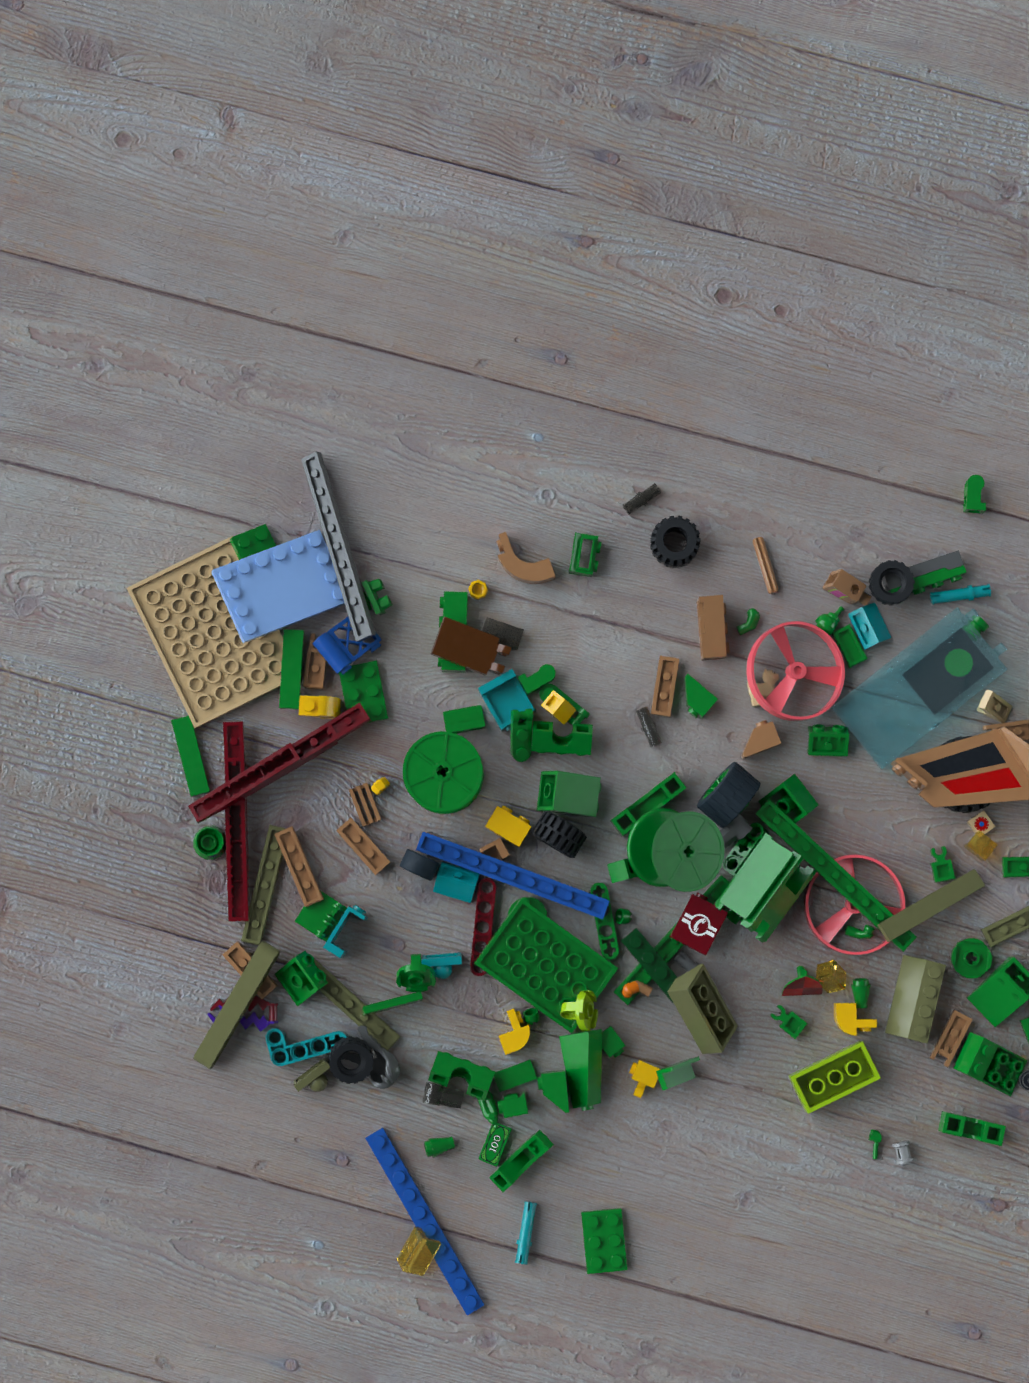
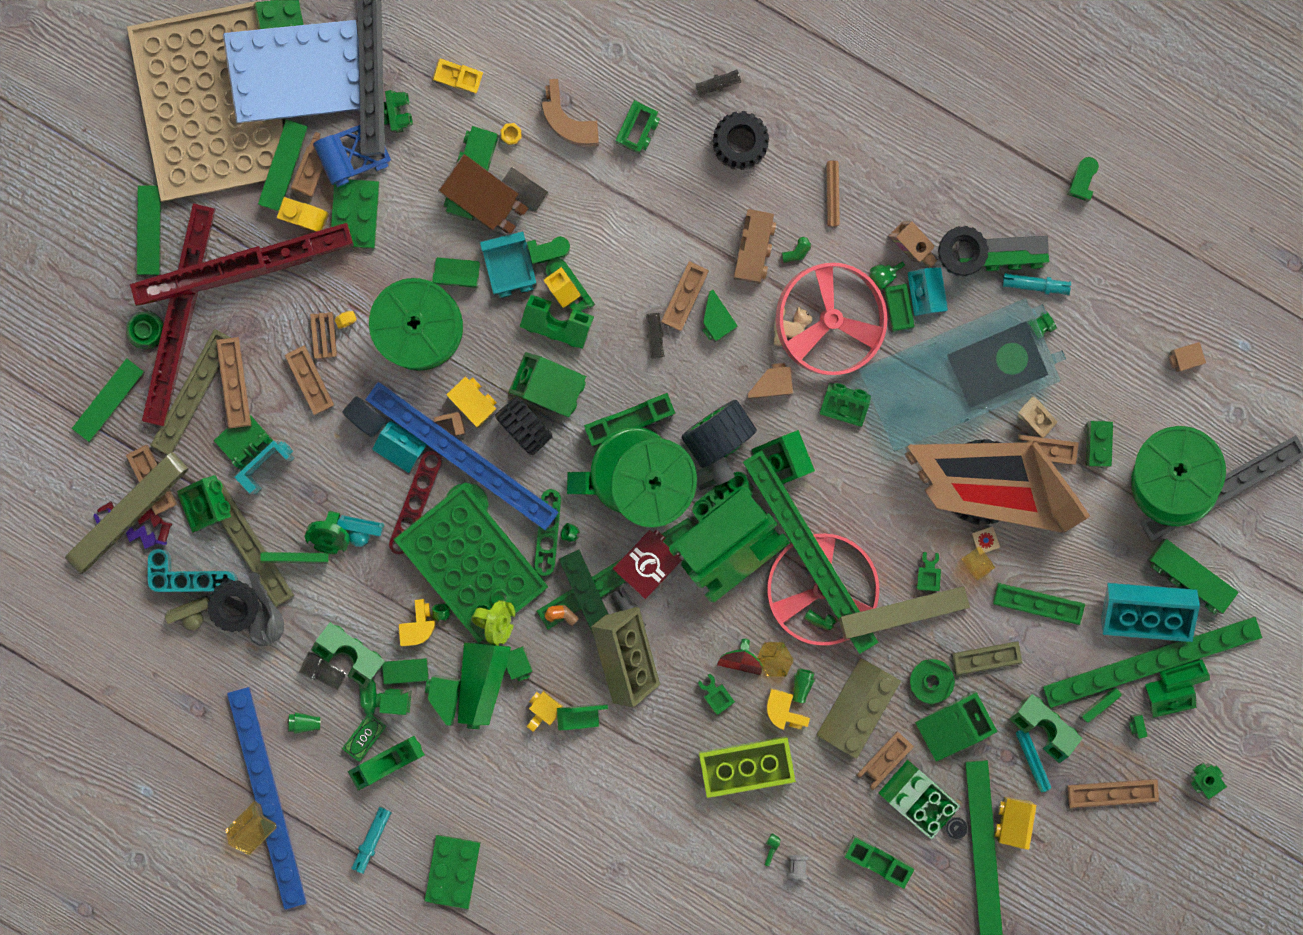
camera: 15 degrees right, 5 degrees up
(194, 911) = (108, 400): none -> green tile
(418, 553) = (457, 76): none -> yellow slope
(521, 734) = (513, 306): green plate -> none

